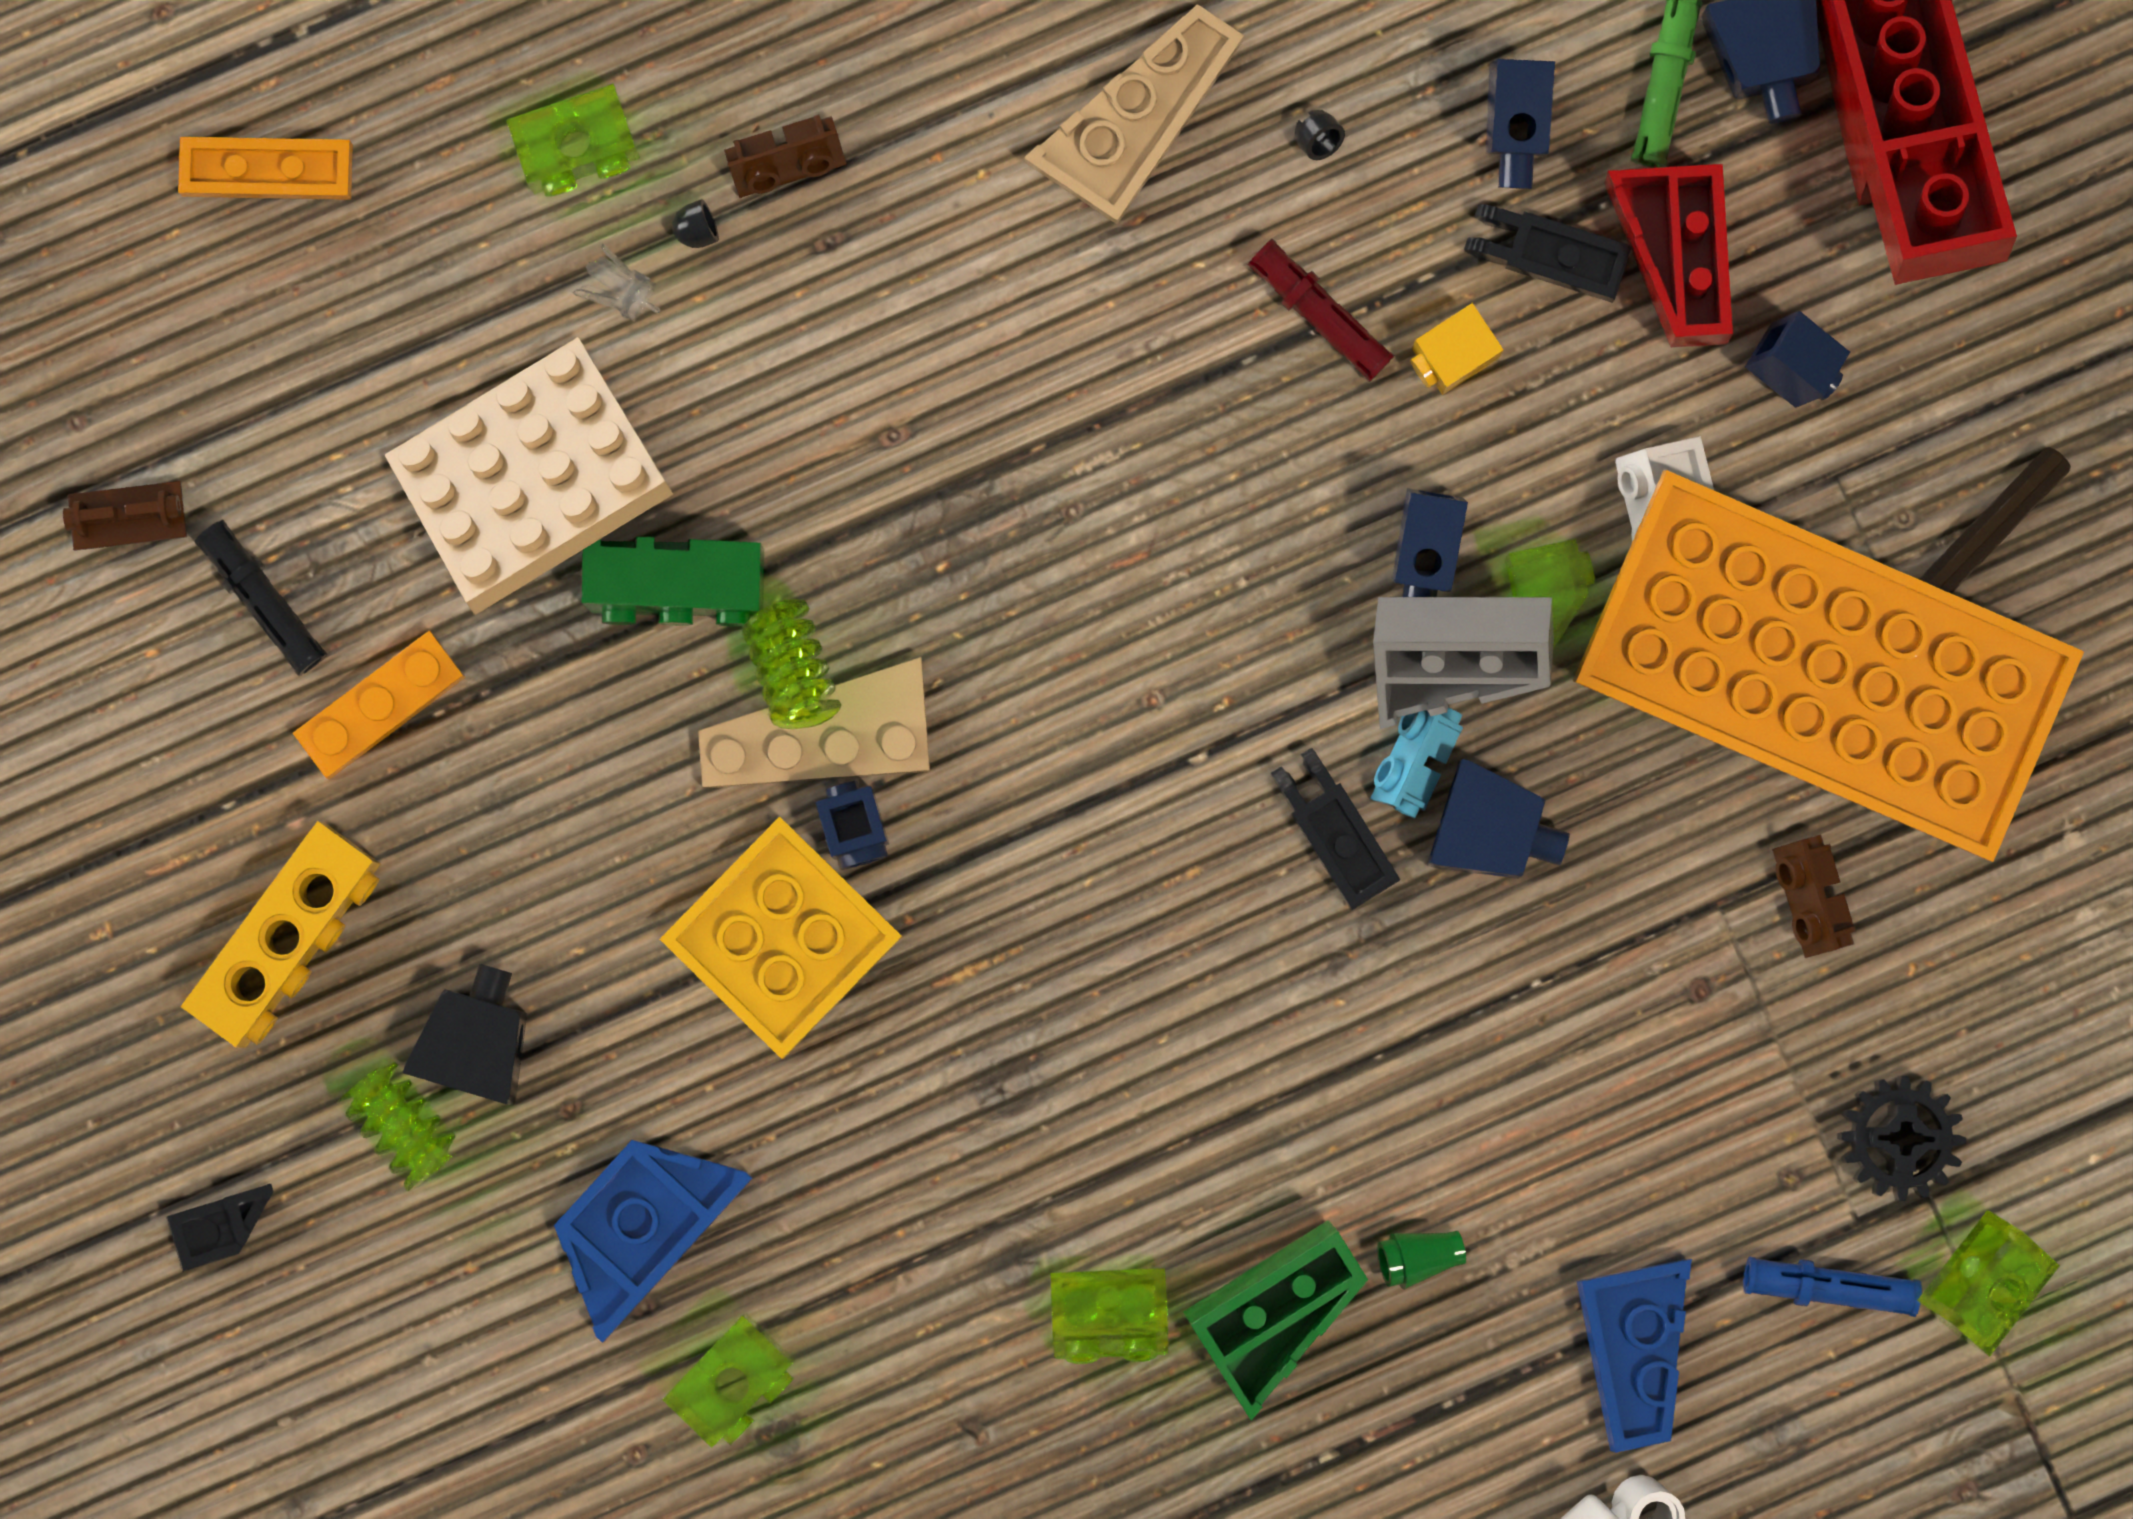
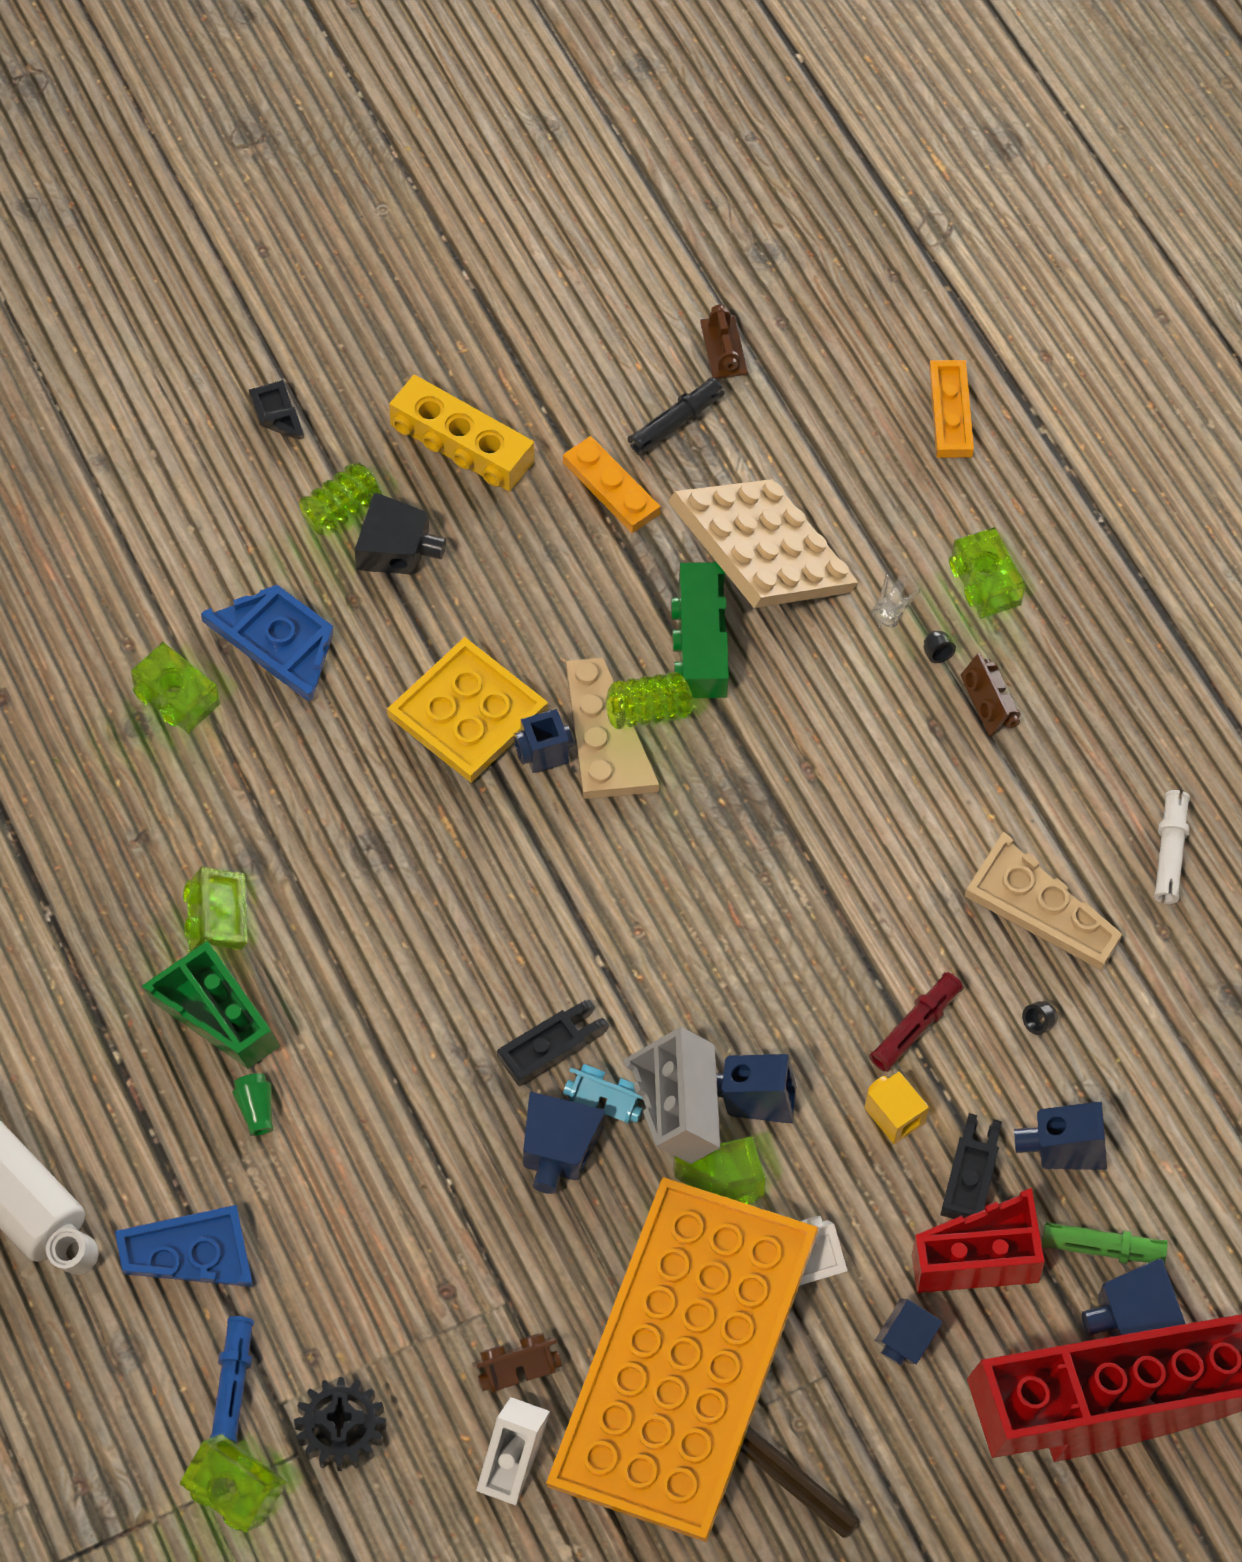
camera: 80 degrees right, 25 degrees down
(1943, 903) = (512, 1450): none -> white slope

